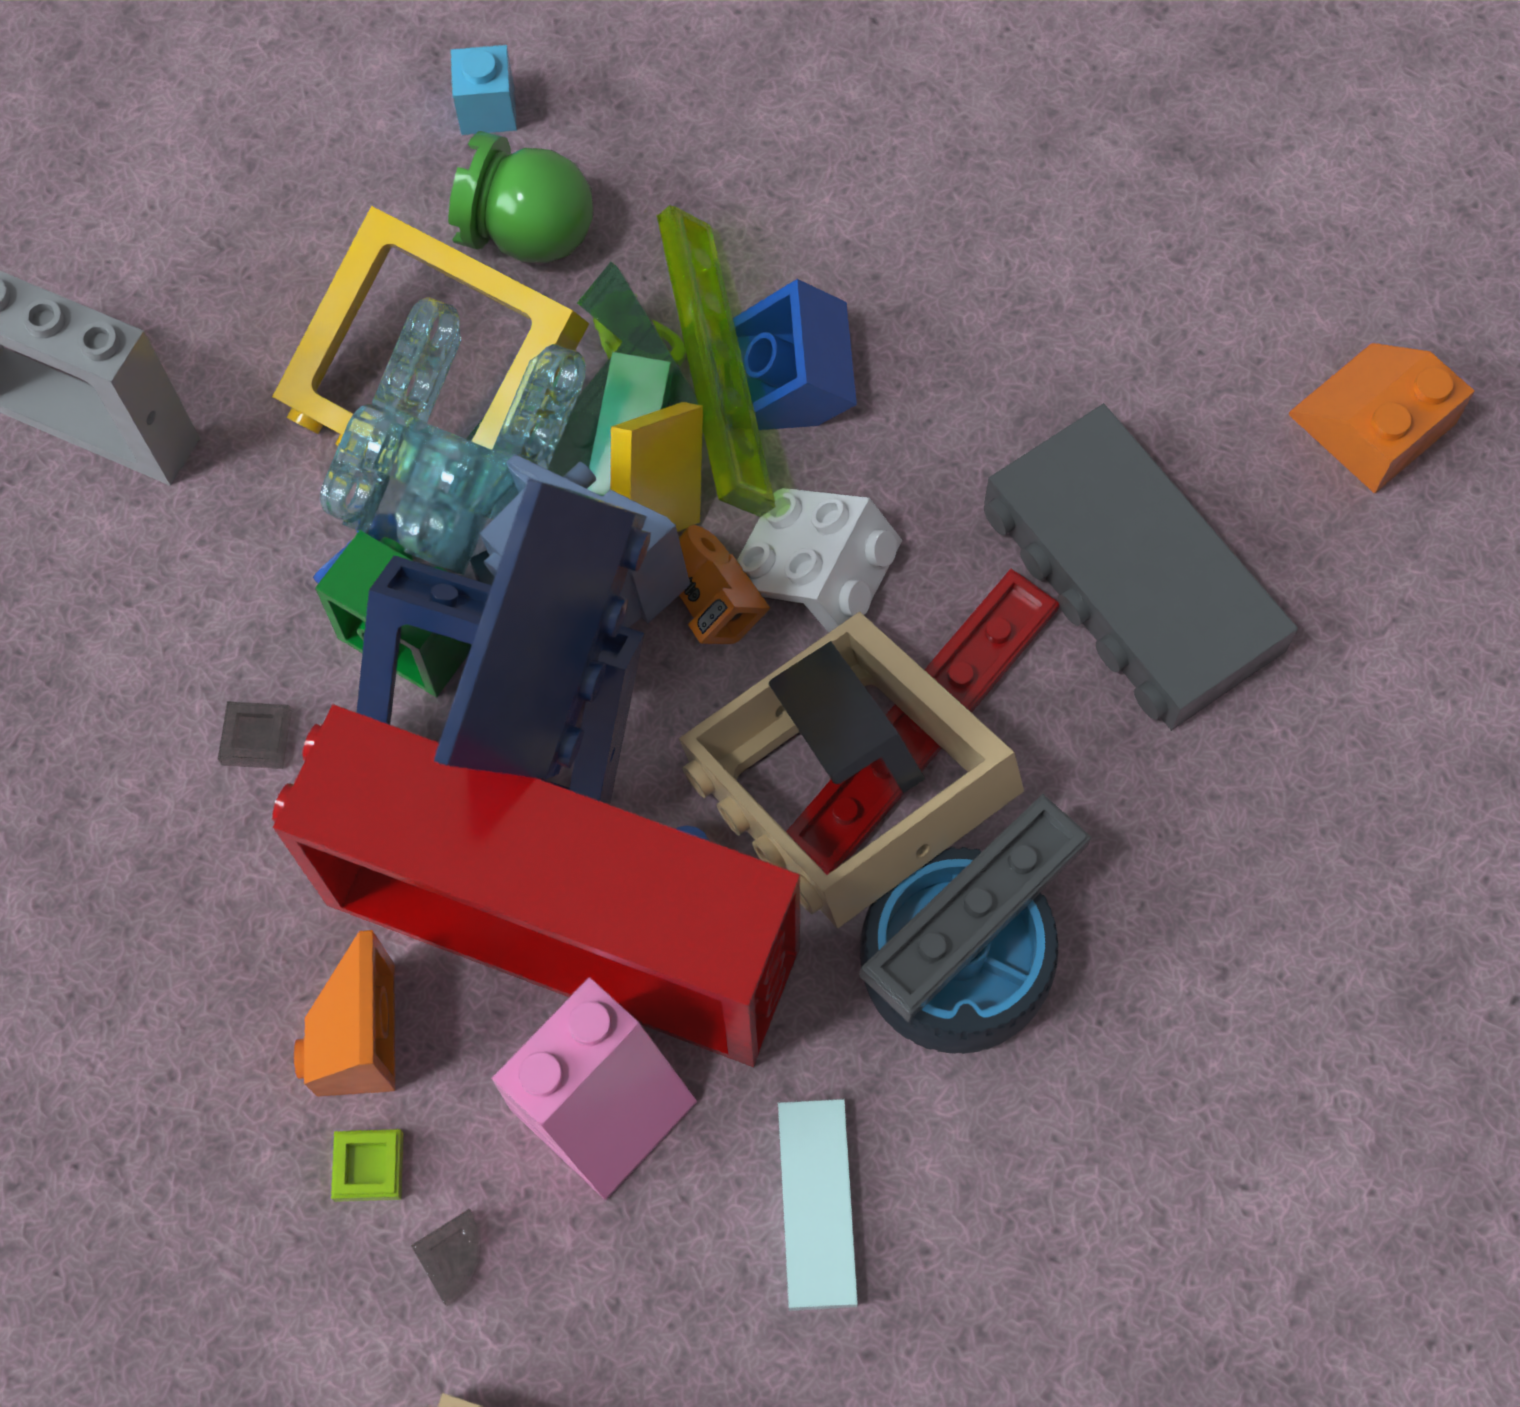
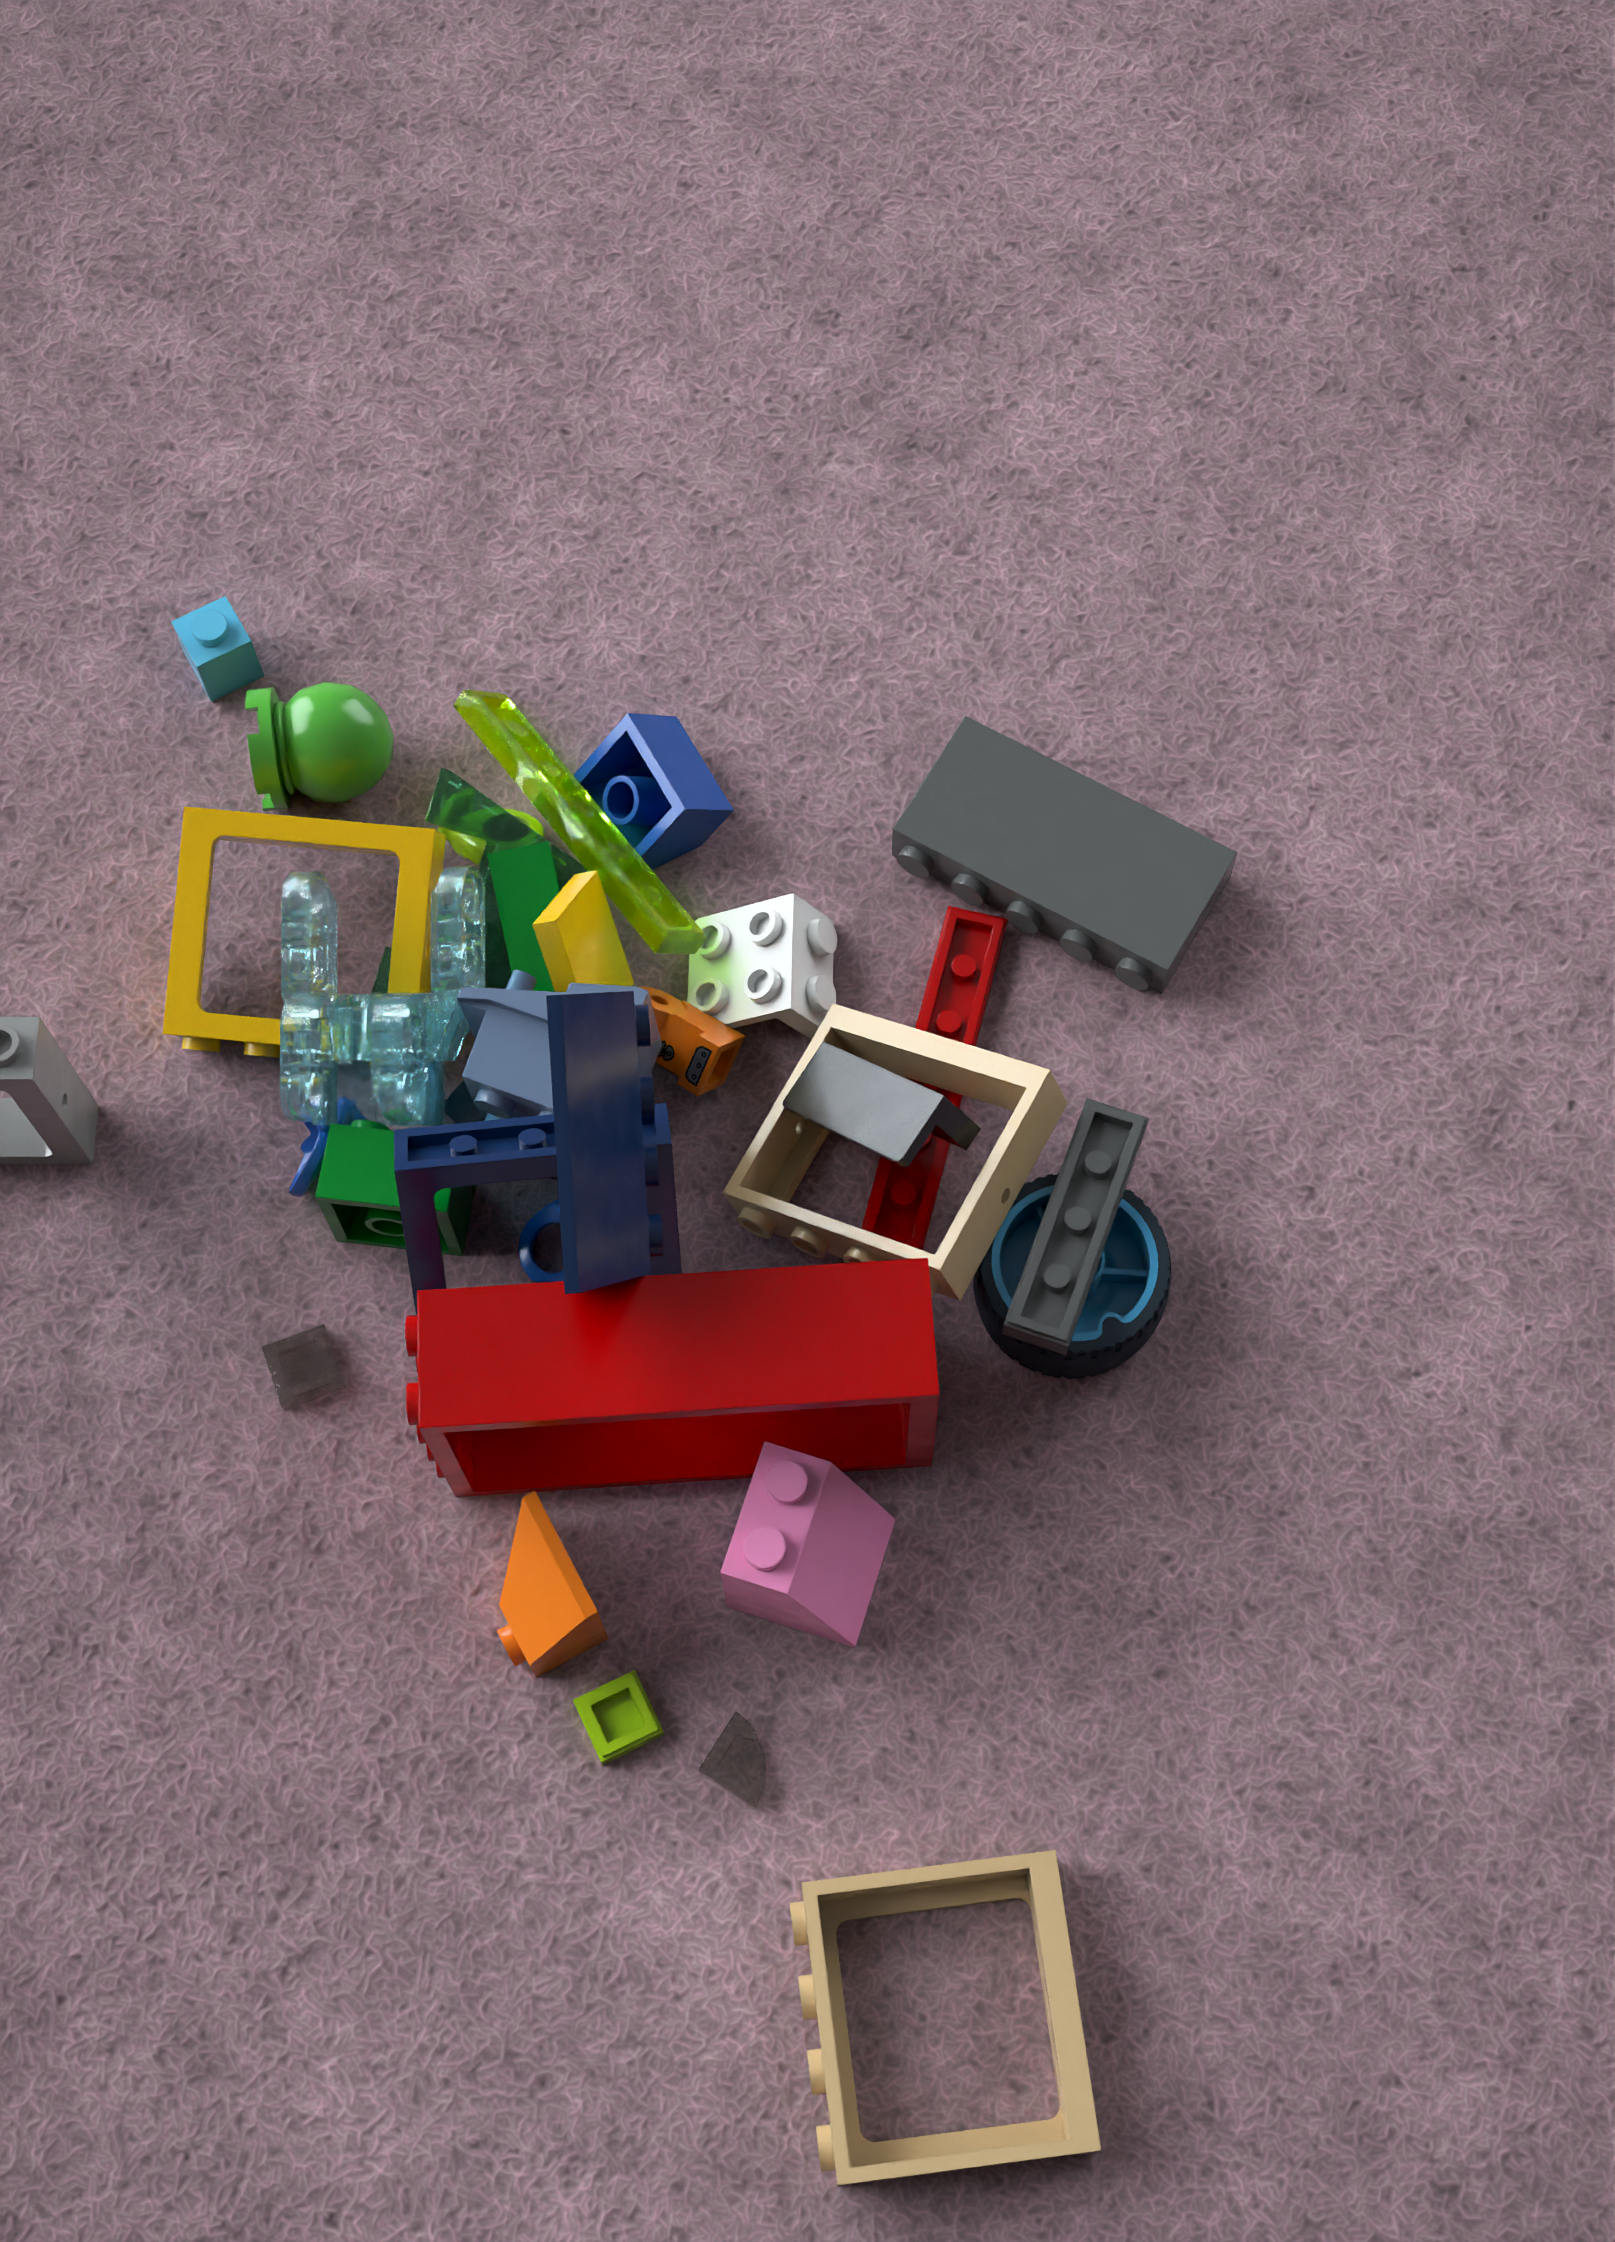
camera: 25 degrees left, 0 degrees up
(817, 1205) = (1050, 1562): light aqua tile -> none
(1383, 410) = (1215, 619): orange slope -> none

